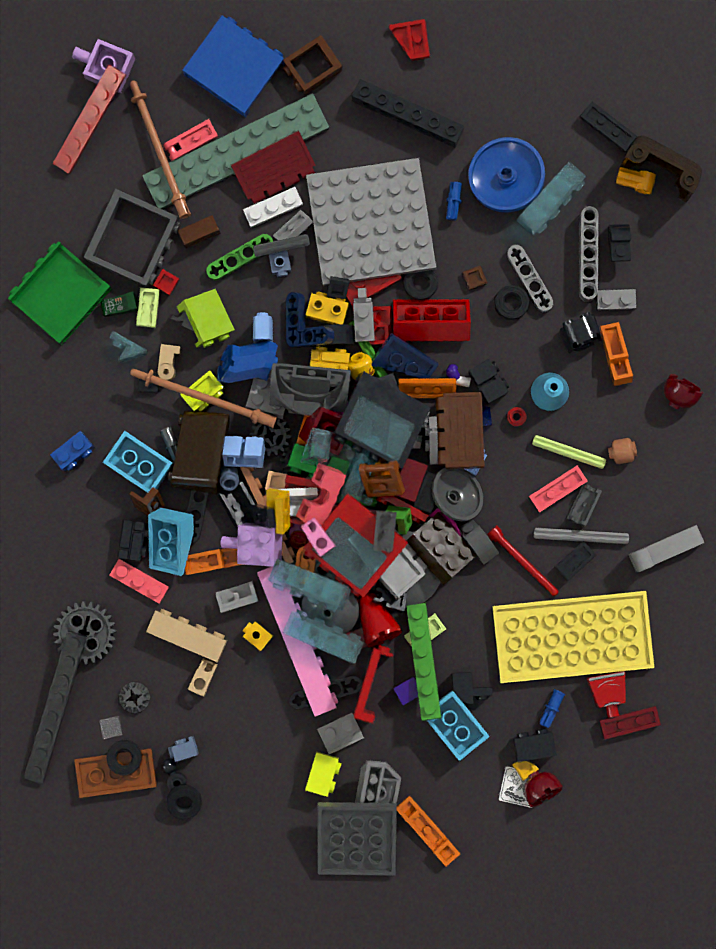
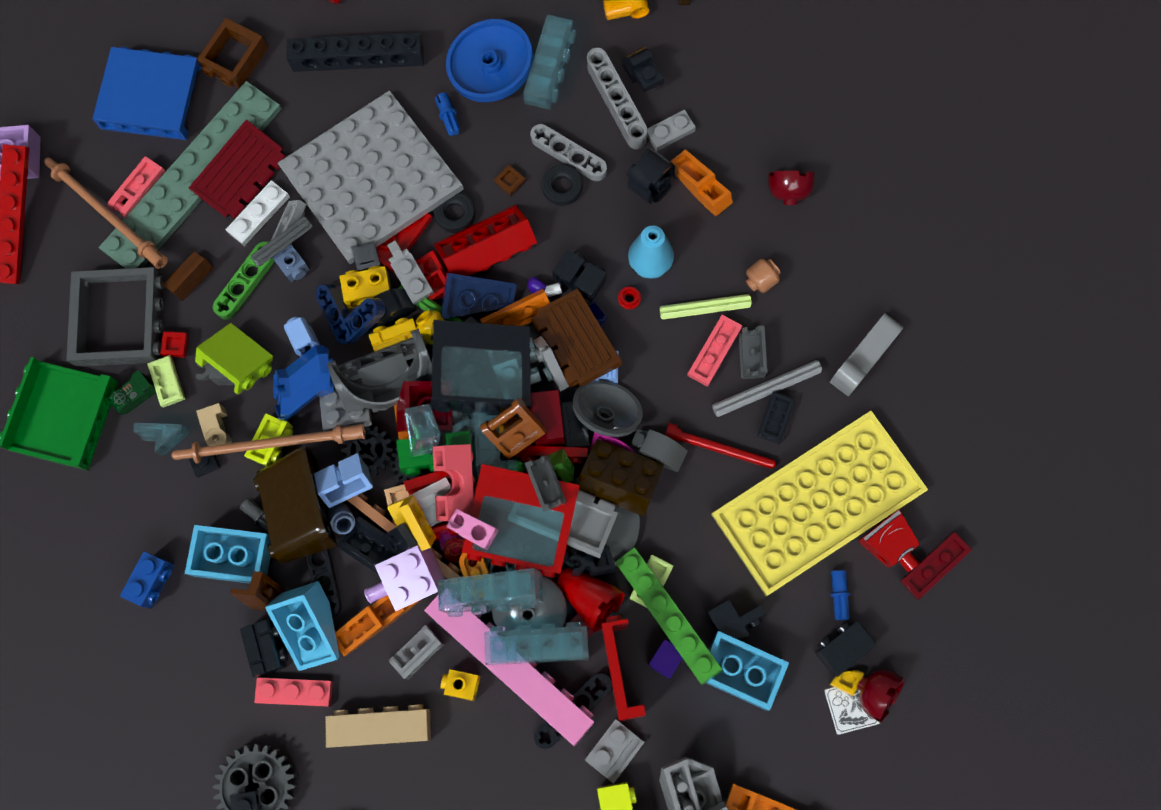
camera: 25 degrees left, 10 degrees down
(203, 677) = (420, 768): tan leg -> none

